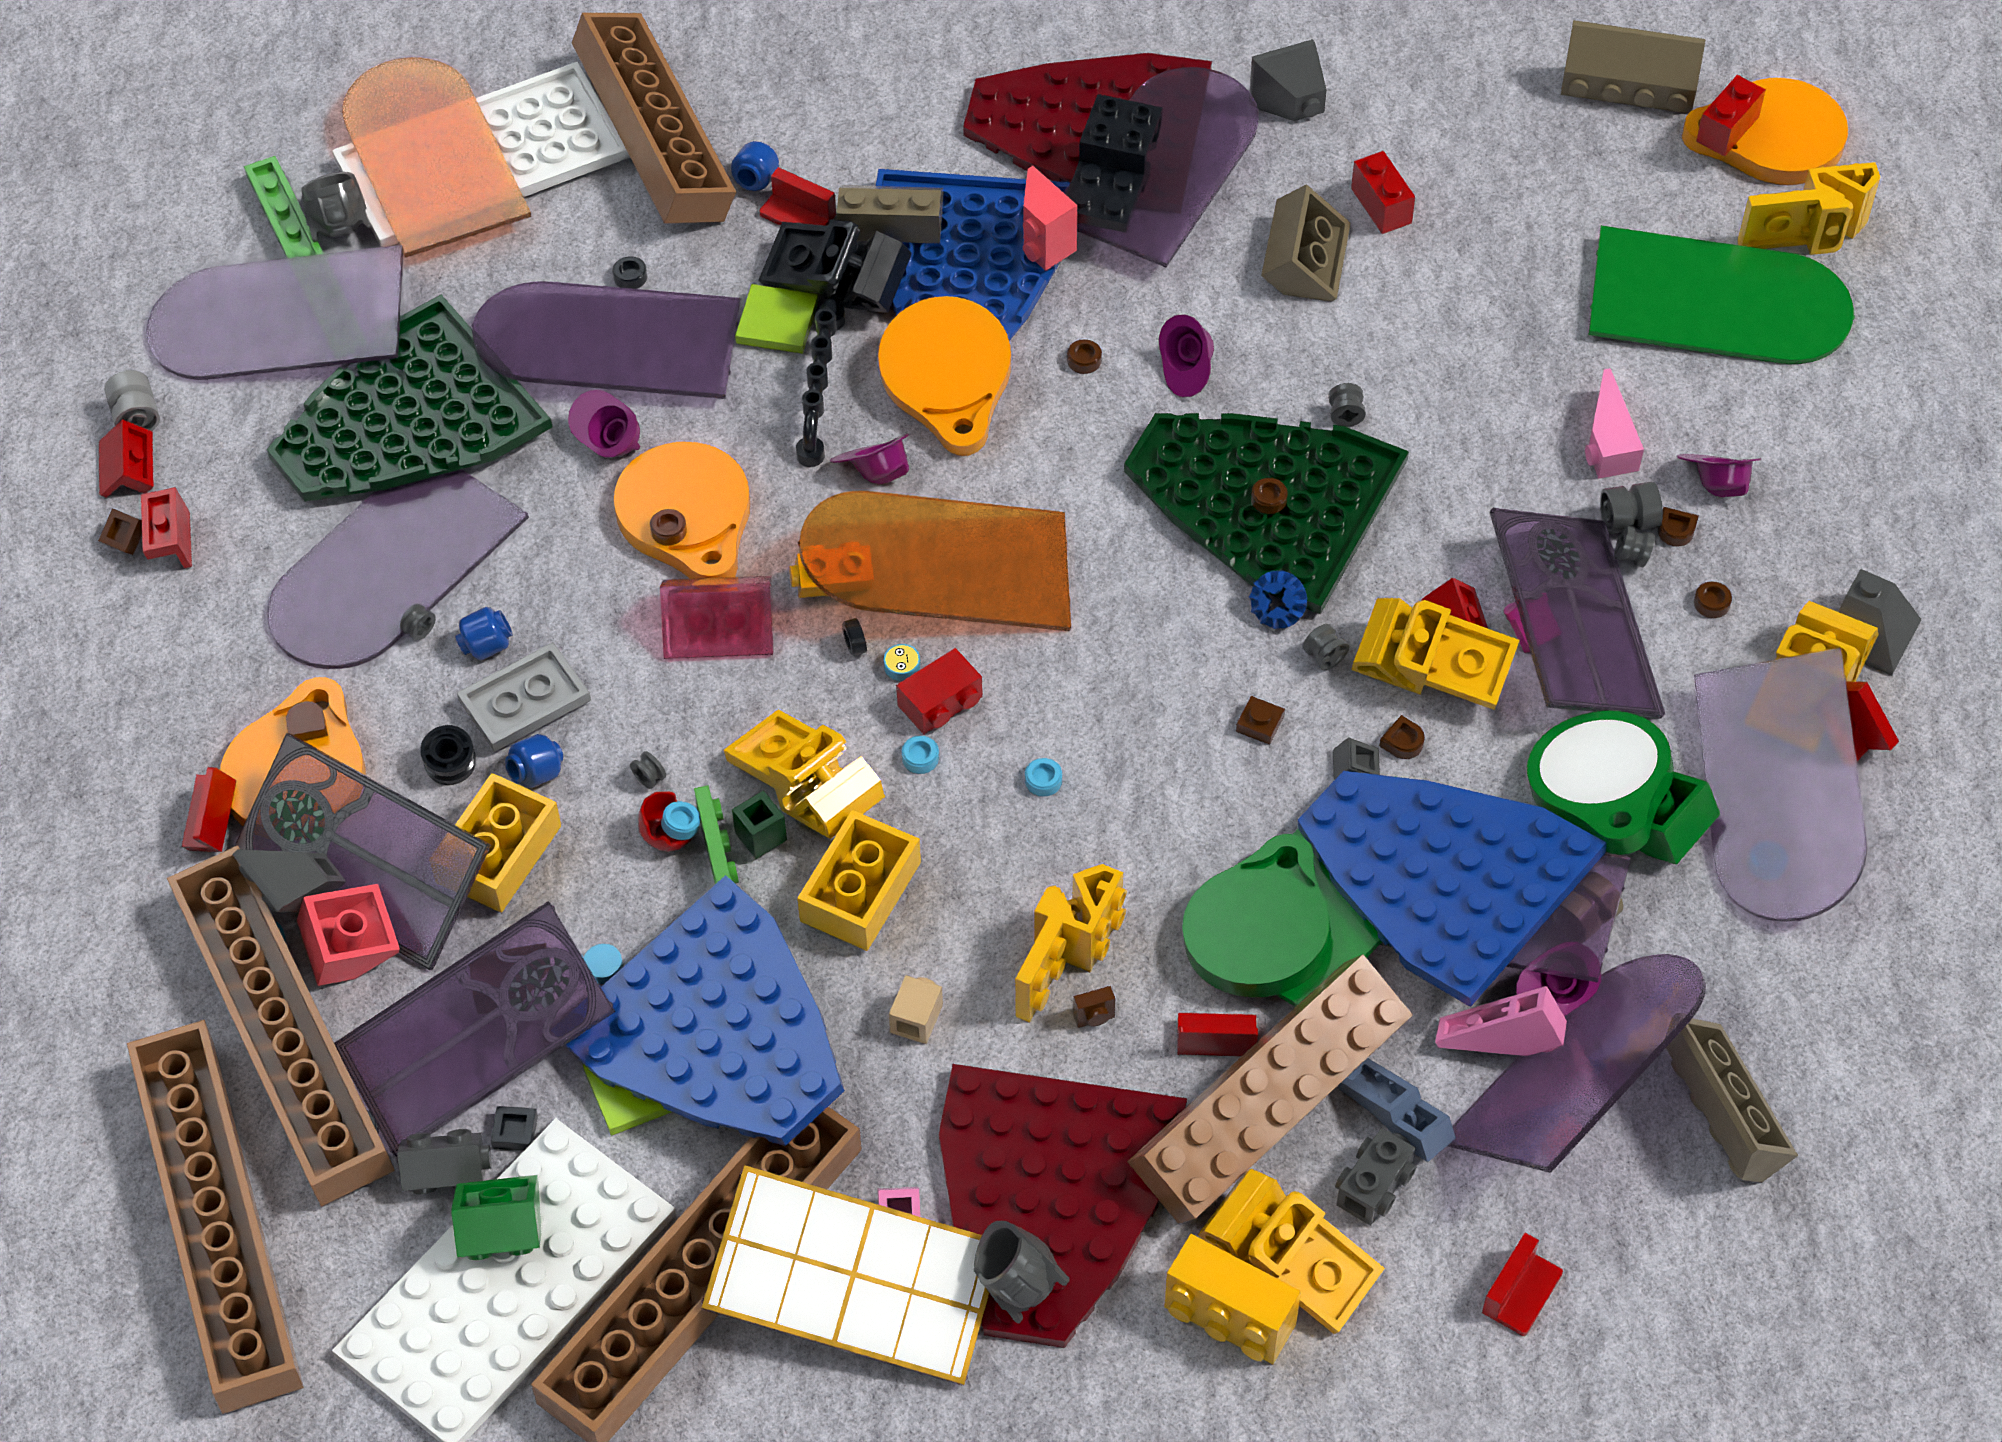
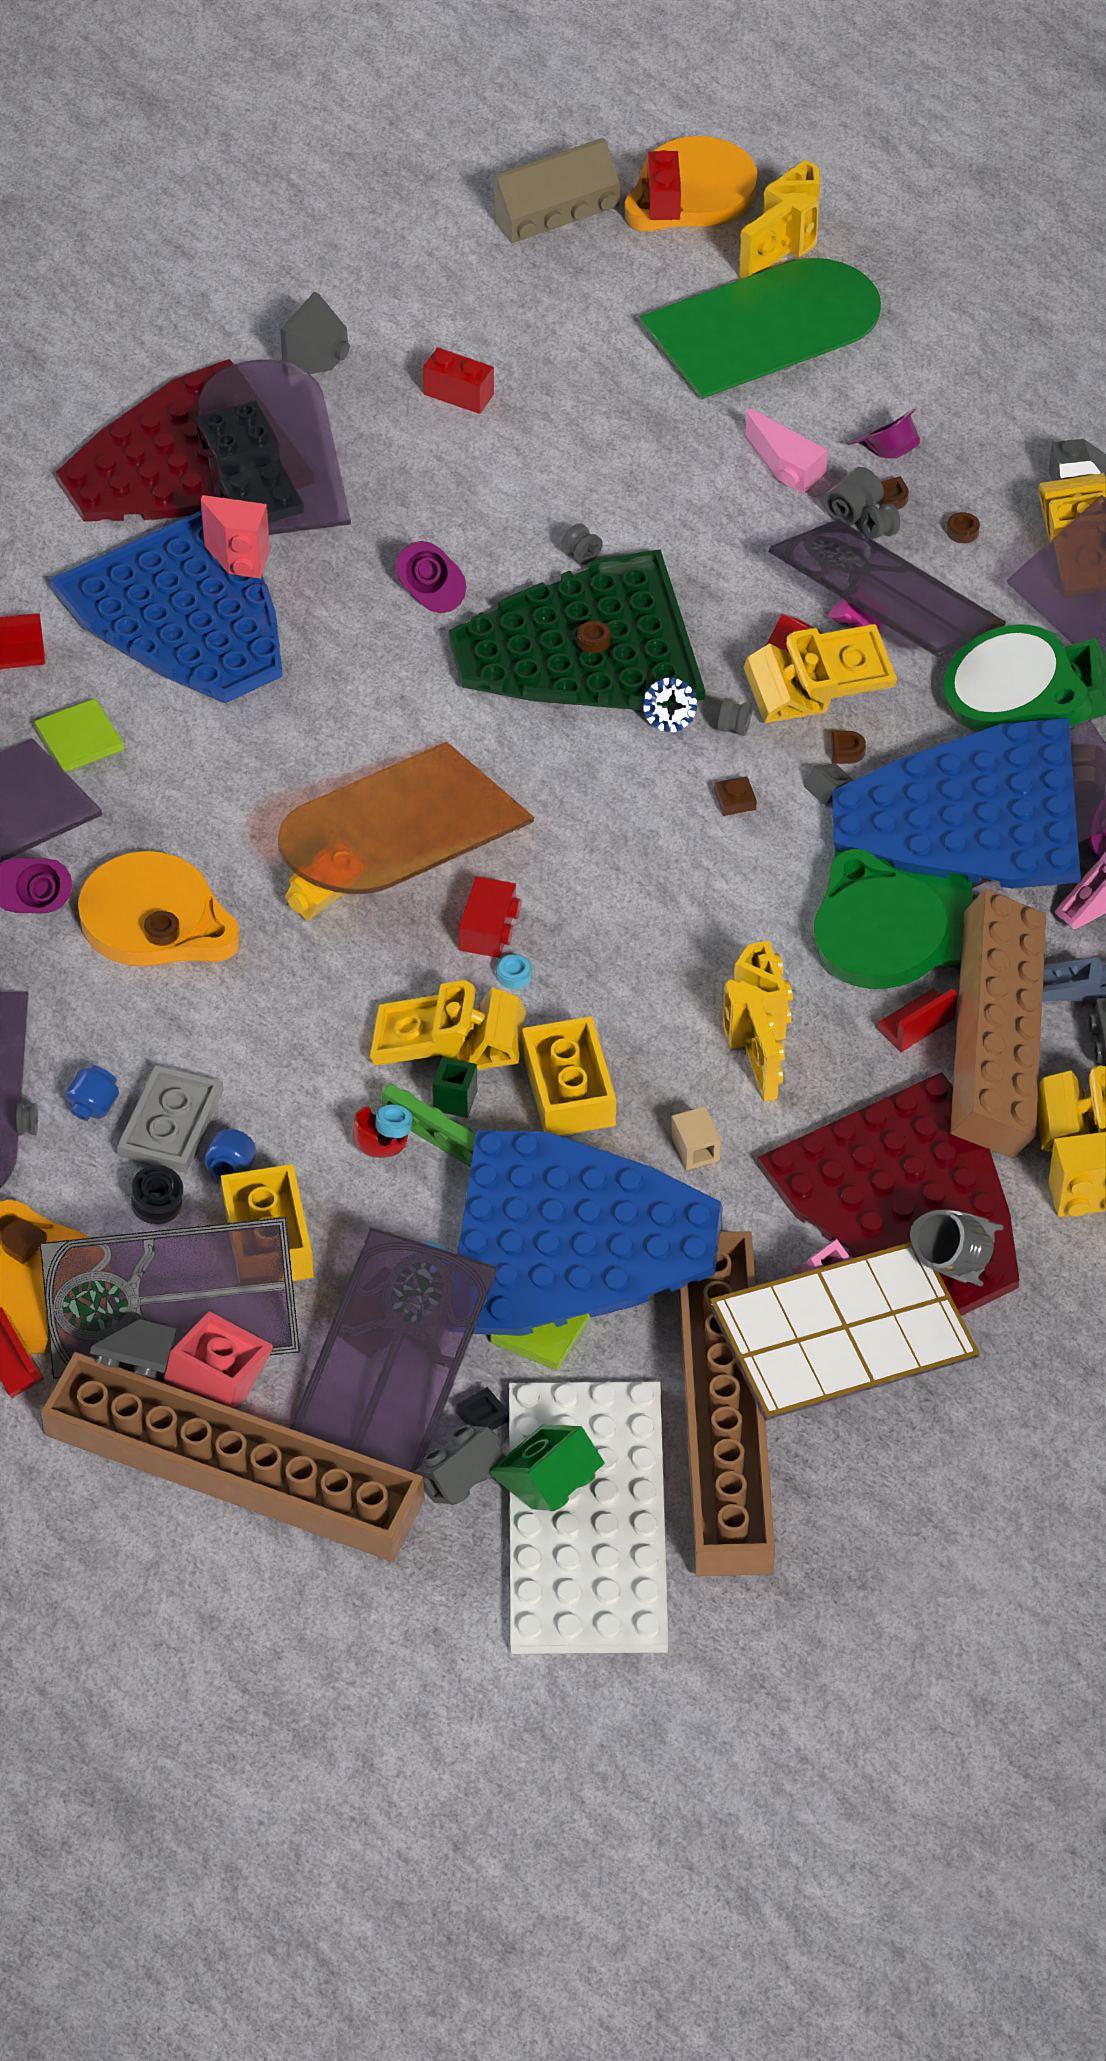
camera: 40 degrees left, 5 degrees down
(214, 1218) = (327, 1615): medium nougat brick -> none
(648, 770) = (324, 1107): dark grey bush -> none
(717, 617) = (264, 969): clear pink slope -> none
(828, 320) = (128, 708): black bar -> none
(835, 265) = (95, 663): black piece -> none
(854, 637) = (384, 919): black tile -> none
(878, 462) = (272, 787): magenta piece -> none
(895, 211) = (101, 602): dark tan slope -> none
(901, 661) = (434, 917): tile -> none
(947, 368) = (260, 689): light orange piece -> none
(1043, 777) = (620, 930): medium azure tile -> none
(1084, 356) = (347, 625): reddish brown tile -> none
(1094, 1007) = (819, 1054): reddish brown plate -> none
(1306, 246) = (437, 451): dark tan slope -> none

